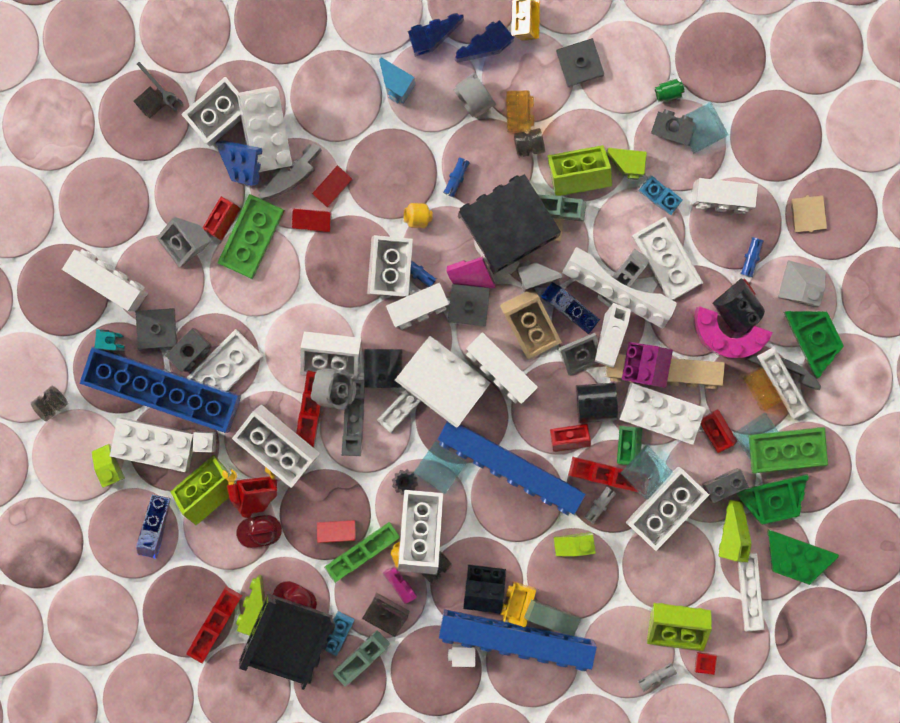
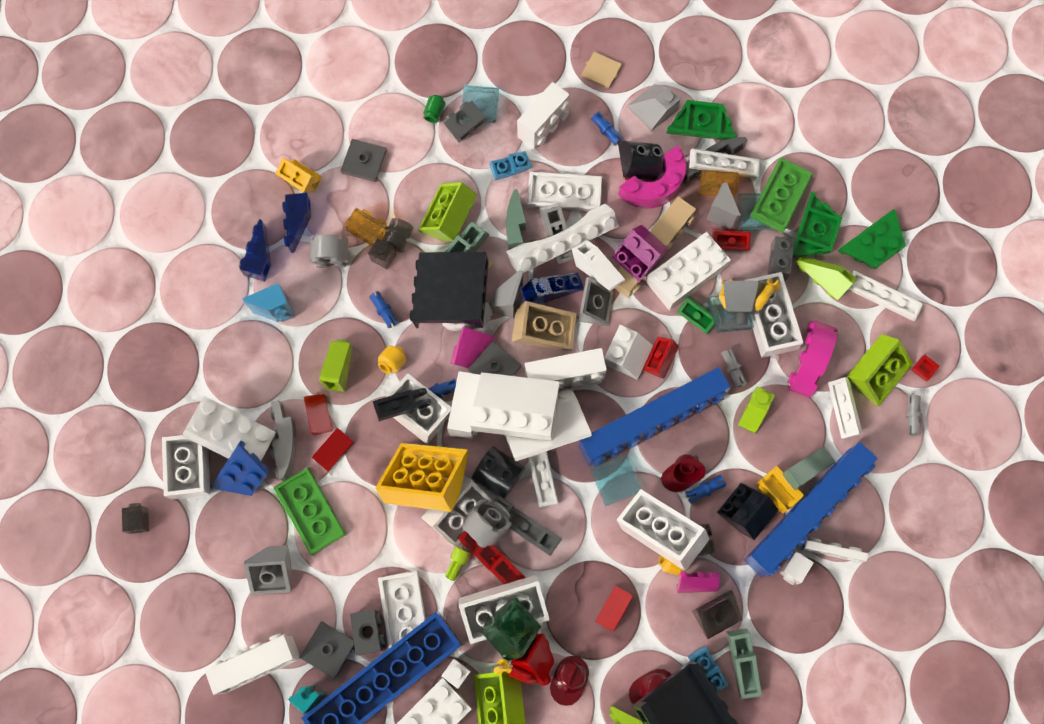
camera: 55 degrees left, 15 degrees down
(166, 95) = (125, 500): dark grey flag -> none
(221, 218) = (276, 525): red slope -> none
(262, 464) = (511, 629): none -> clear green slope
(293, 383) = (459, 558): none -> lime piece
(336, 312) = (424, 477): none -> yellow slope
(361, 552) = (647, 598): bright green slope -> none
(380, 252) = (400, 404): none -> black hinge
(382, 173) = (336, 366): none -> lime slope
(404, 475) = (603, 514): black piece -> none
(439, 349) = (515, 406): none -> white slope
(480, 544) = (705, 489): none -> blue pin
(481, 519) = (683, 473): none -> dark red piece
(498, 678) = (834, 550): none -> white plate
(504, 141) = (382, 253): none -> clear smoke brick
(555, 408) = (628, 352): none -> white slope
(597, 402) = (646, 315): black brick -> none
(599, 473) = (707, 351): red slope -> none
(609, 235) = (514, 221): none -> sand green slope
(625, 617) = (845, 408): none -> white plate
(628, 161) = (467, 170): lime slope -> none
(654, 568) = (814, 358): none -> dark pink brick
(664, 479) = (746, 297): none -> torso
(738, 409) = (724, 209): none -> light grey slope

